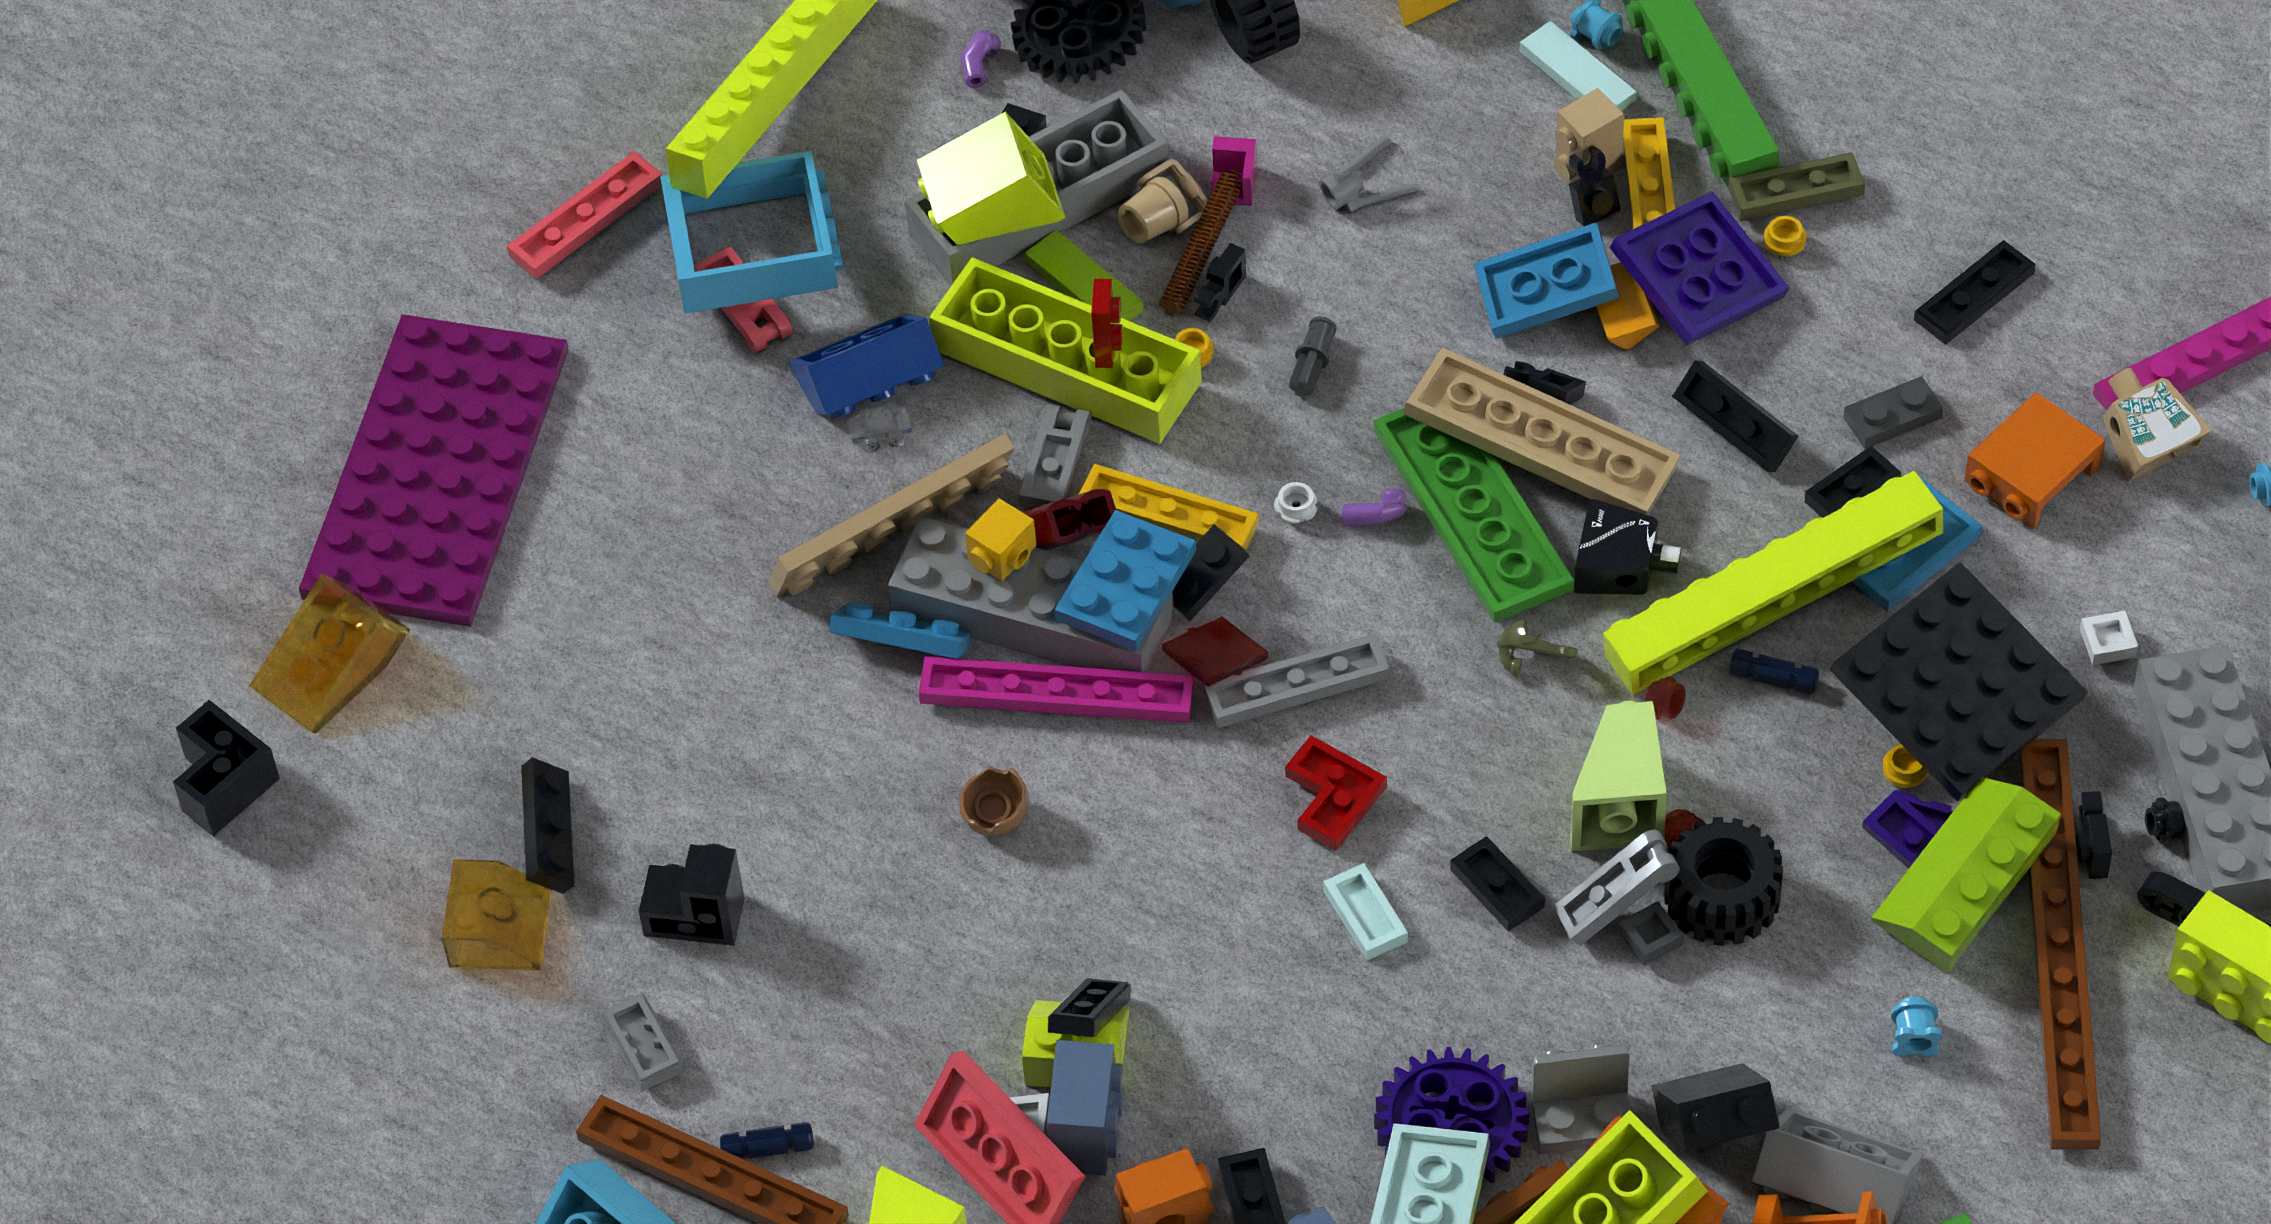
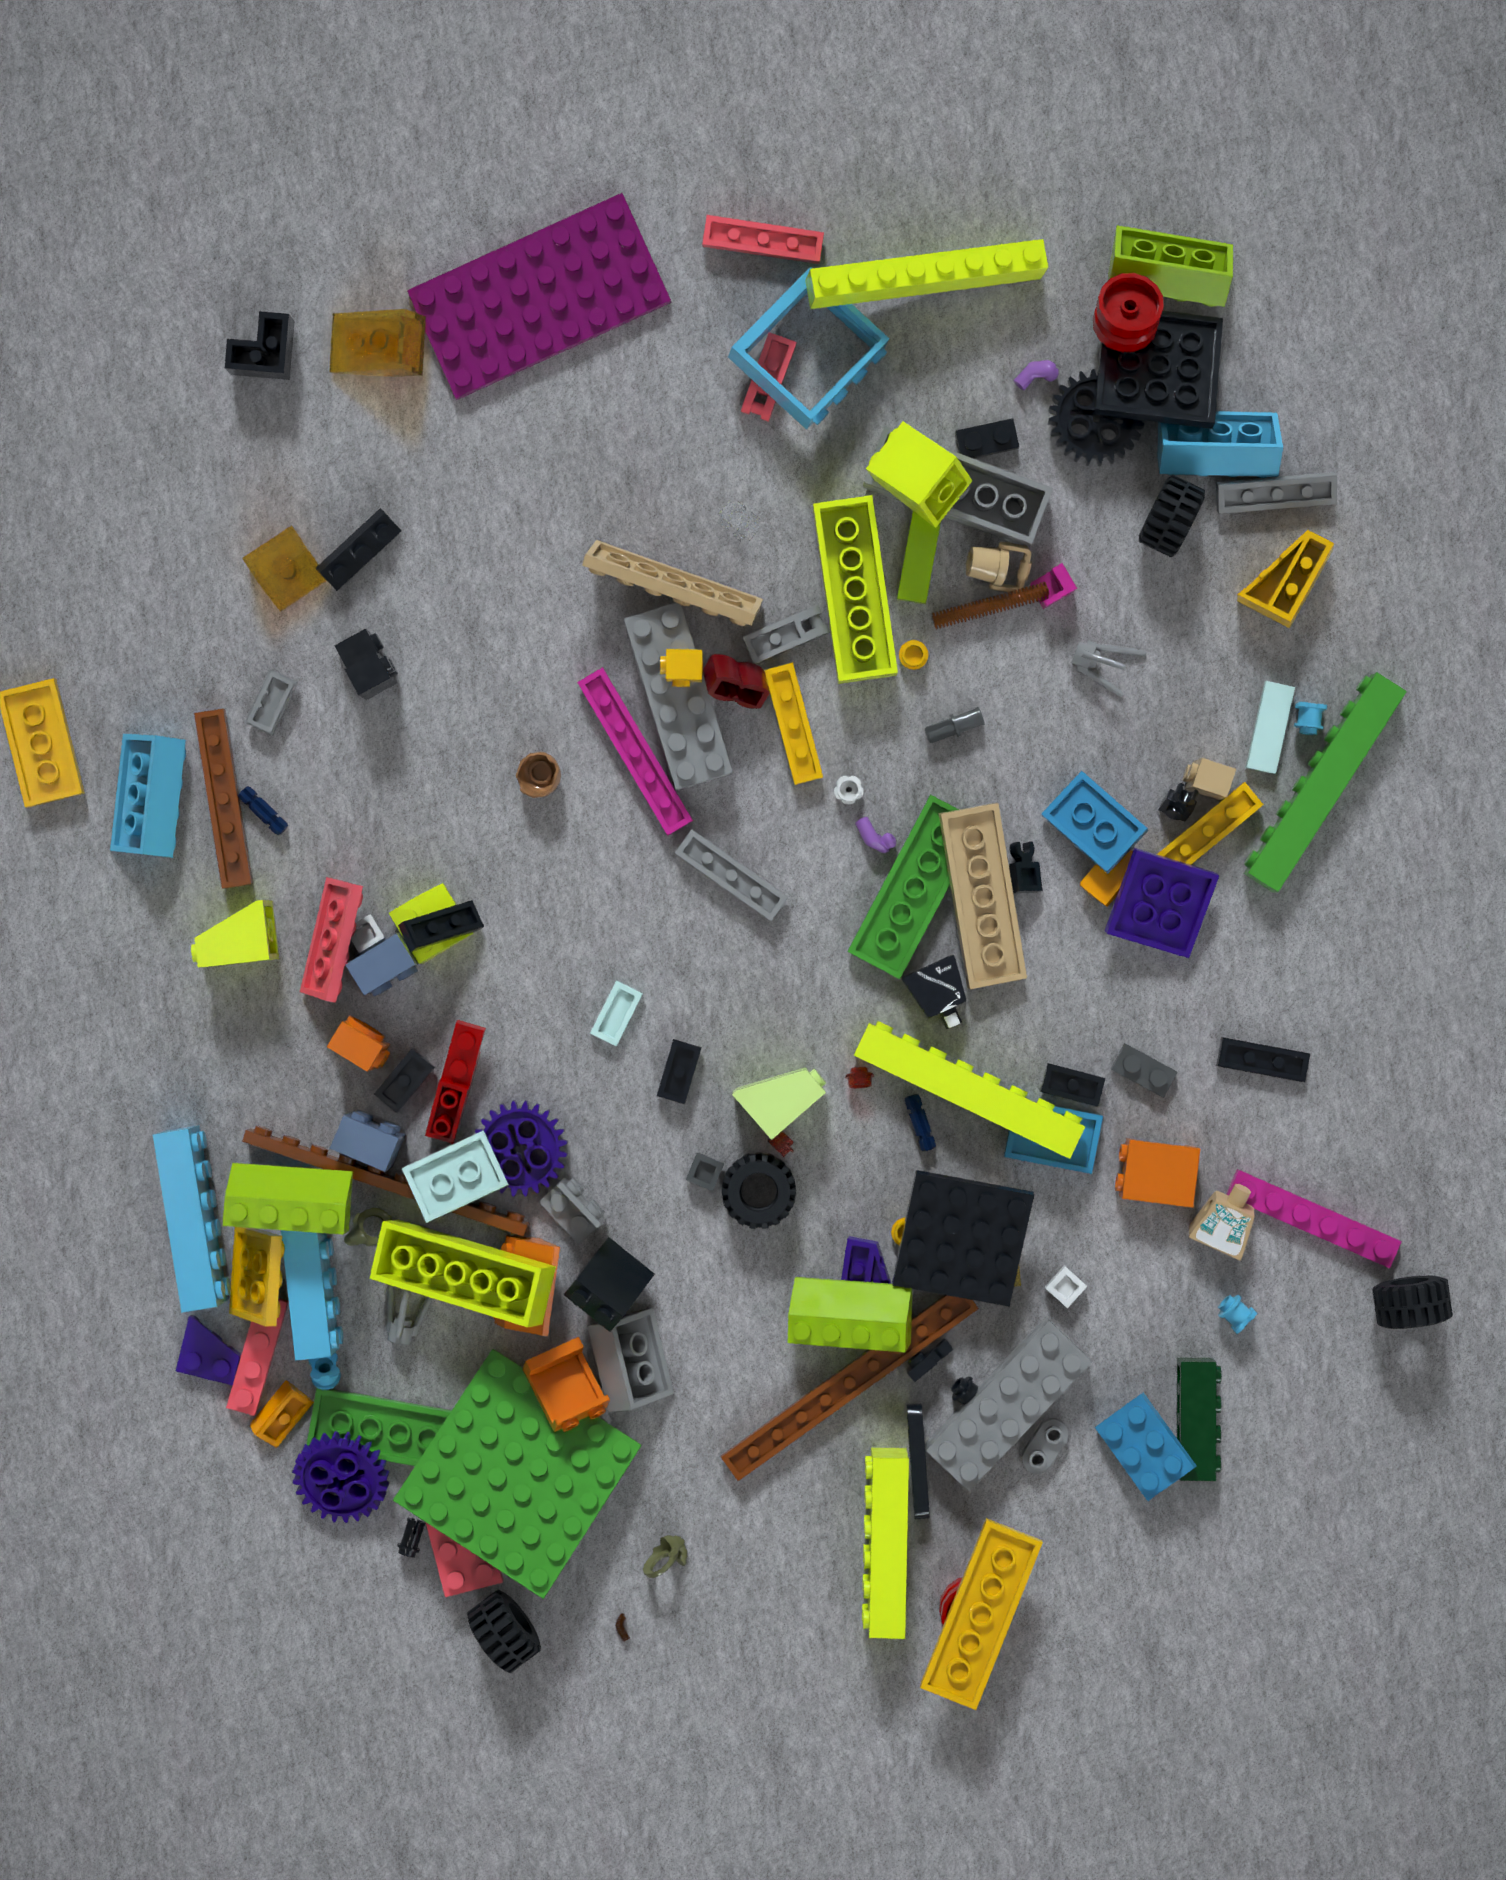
camera: 50 degrees right, 35 degrees up
(868, 365) = (772, 481): blue slope -> none
(901, 630) = (610, 640): dark azure plate -> none
(1104, 314) = (862, 618): red plate -> none
(1125, 580) = (711, 749): dark azure plate -> none
(1210, 568) = (763, 774): black plate -> none
(1215, 651) = (718, 818): clear red piece -> none
(1224, 278) = (974, 636): black plate -> none
(1300, 1136) = (455, 1081): none -> red slope
(1343, 788) = (682, 951): red plate -> none
(1518, 637) = (842, 977): olive piece -> none
(1616, 886) = (710, 1140): light grey plate -> none
(1735, 416) = (1075, 989): black plate -> none
(1785, 236) = (1227, 929): yellow plate -> none
(1796, 186) = (1268, 912): olive plate -> none
(1915, 1027) = (742, 1344): medium azure brick -> none

